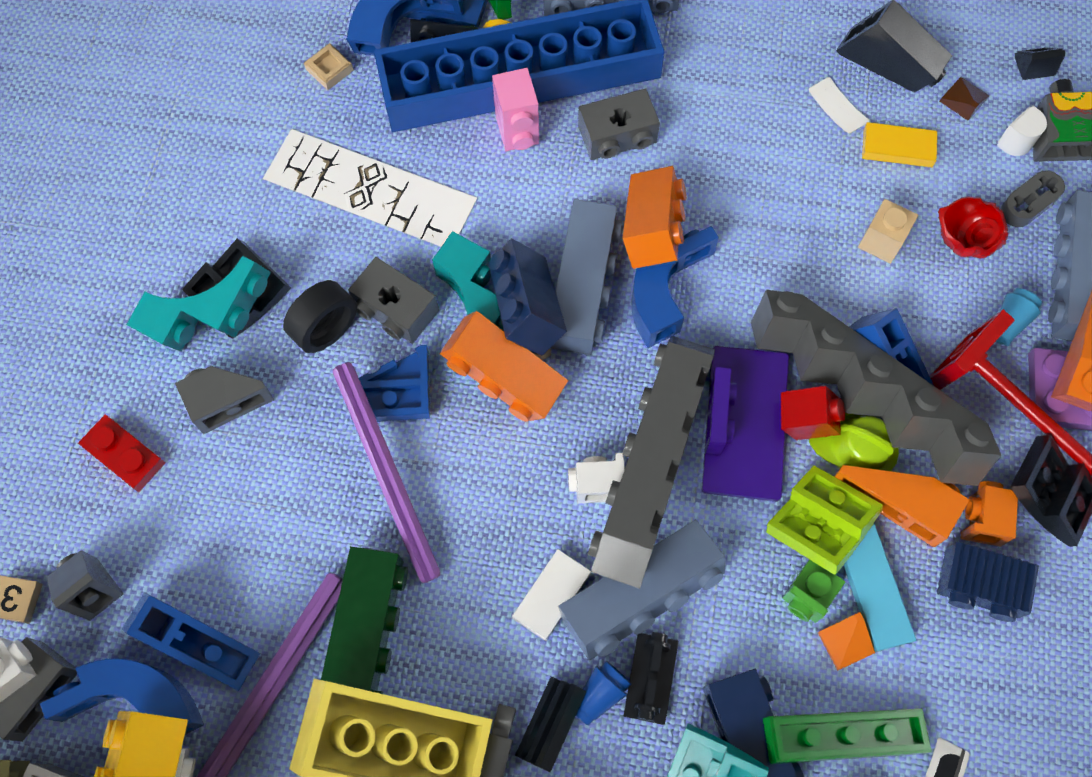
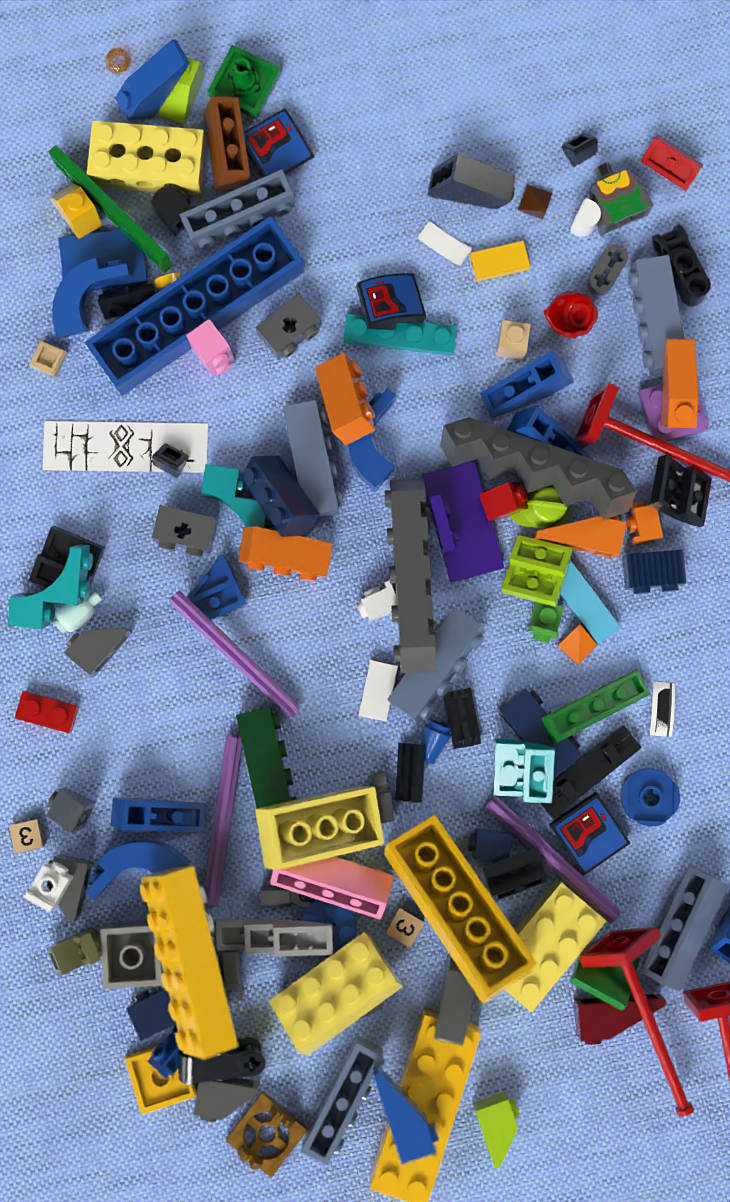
camera: 25 degrees left, 15 degrees up
(215, 347) = (73, 617): none -> light aqua plant
(320, 316) = (141, 565): black tyre -> none
(413, 218) = (170, 460): none -> black slope
(748, 181) = (406, 336): none -> teal plate
(752, 134) = (390, 301): none -> slope
(907, 284) = (528, 385): none -> blue slope
(1024, 308) = (620, 369): dark azure cone -> none

